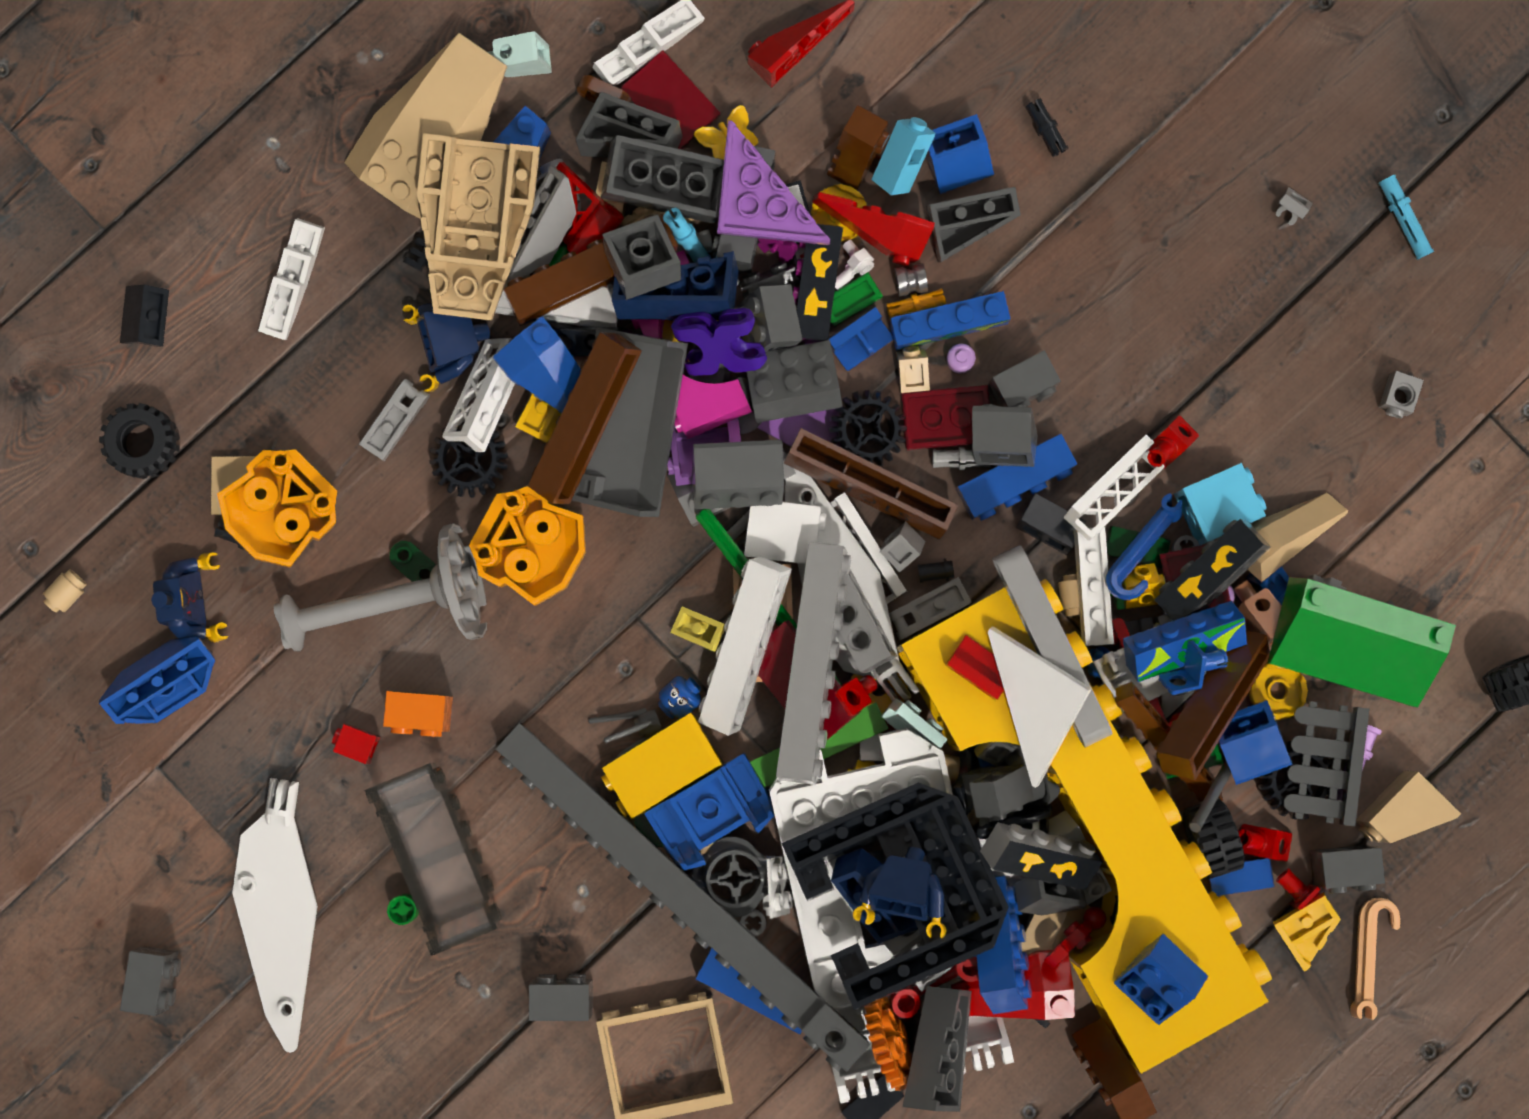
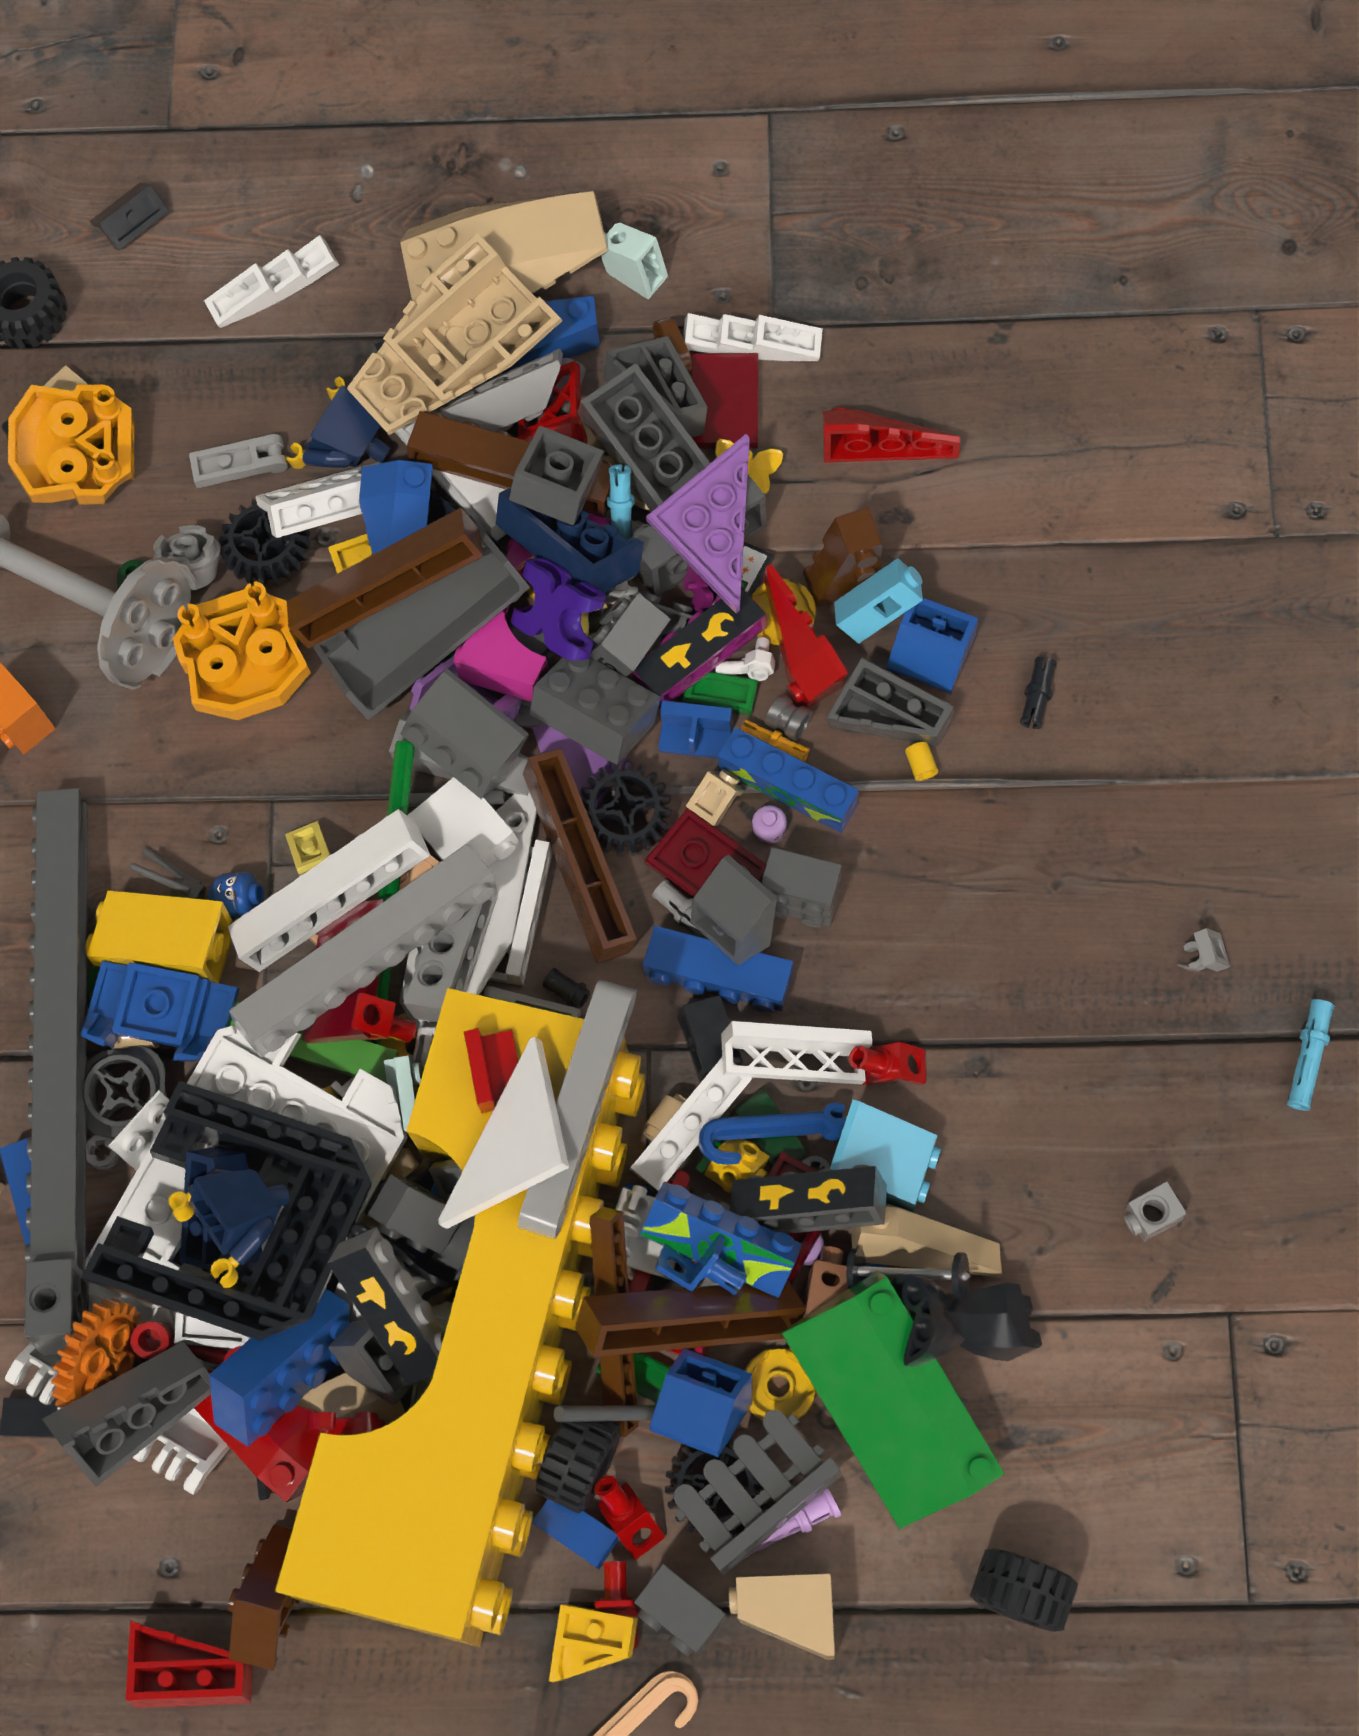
camera: 50 degrees right, 15 degrees down
(431, 510) = (193, 549): none -> light grey cone
(902, 546) = (554, 935): light grey brick -> none
(1016, 235) = (921, 761): none -> yellow hinge
(1161, 979) = (377, 1512): blue slope -> none
(1274, 587) = (959, 1275): none -> black axle
(1364, 554) = (985, 1322): none -> black hips

